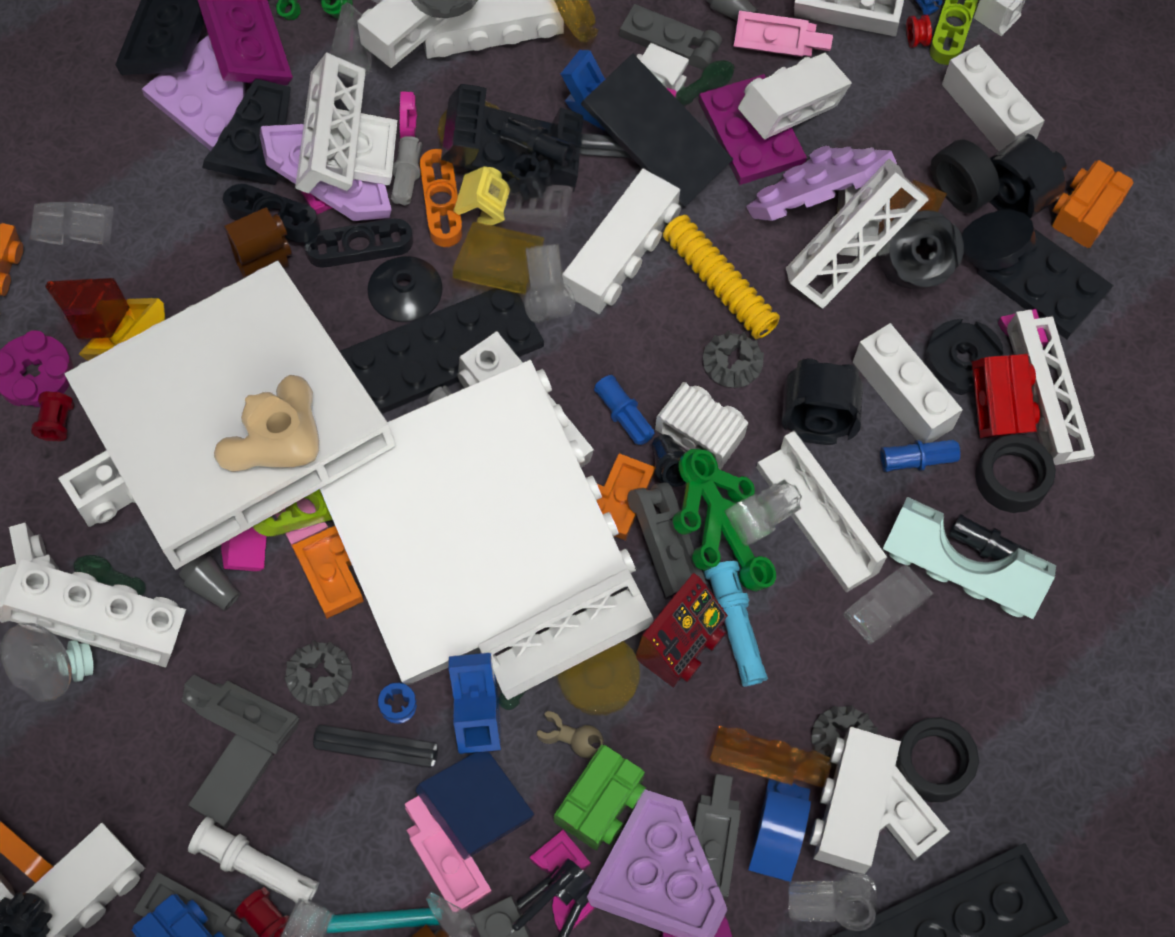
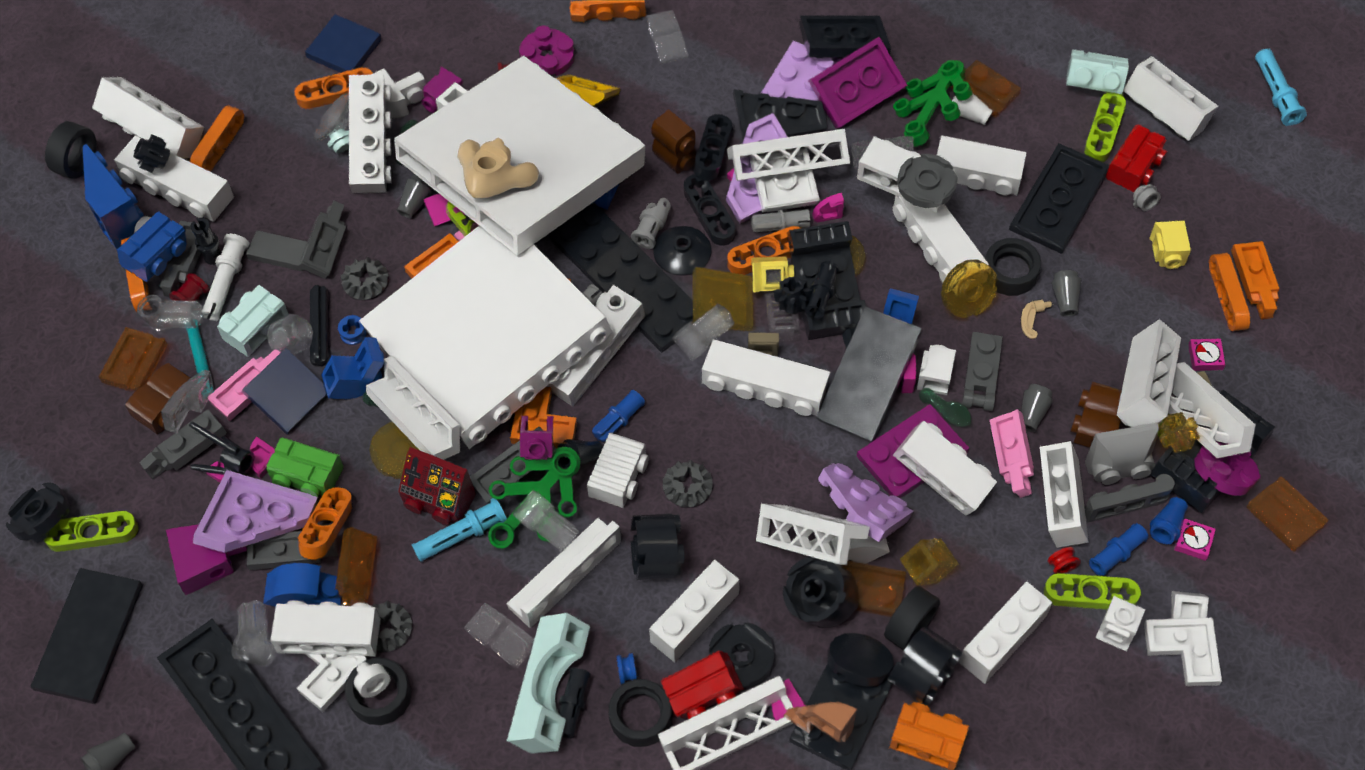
camera: 80 degrees right, 5 degrees down
(49, 510) = (436, 87): none -> magenta window
(89, 305) = (594, 61): clear red slope -> none
(191, 872) = (206, 240): none -> black pin
(343, 832) = (248, 323): none -> light aqua brick
(361, 309) = (652, 221): none -> light grey piece
(389, 782) = (290, 333): none -> clear head
(576, 231) = (764, 343): none -> dark tan tile
(579, 738) = (348, 449): dark tan arm -> none
(673, 485) = (536, 443): none -> magenta window
(707, 794) = (308, 546): none -> orange beam
(720, 276) = (757, 456): yellow piece -> none
(904, 140) = (929, 561): none -> clear yellow brick
(919, 455) = (638, 636): blue axle -> none
(934, 755) = (371, 679): none -> white tile
(959, 474) = (626, 668): none -> blue bush
(1090, 268) = (831, 717): none -> nougat slope

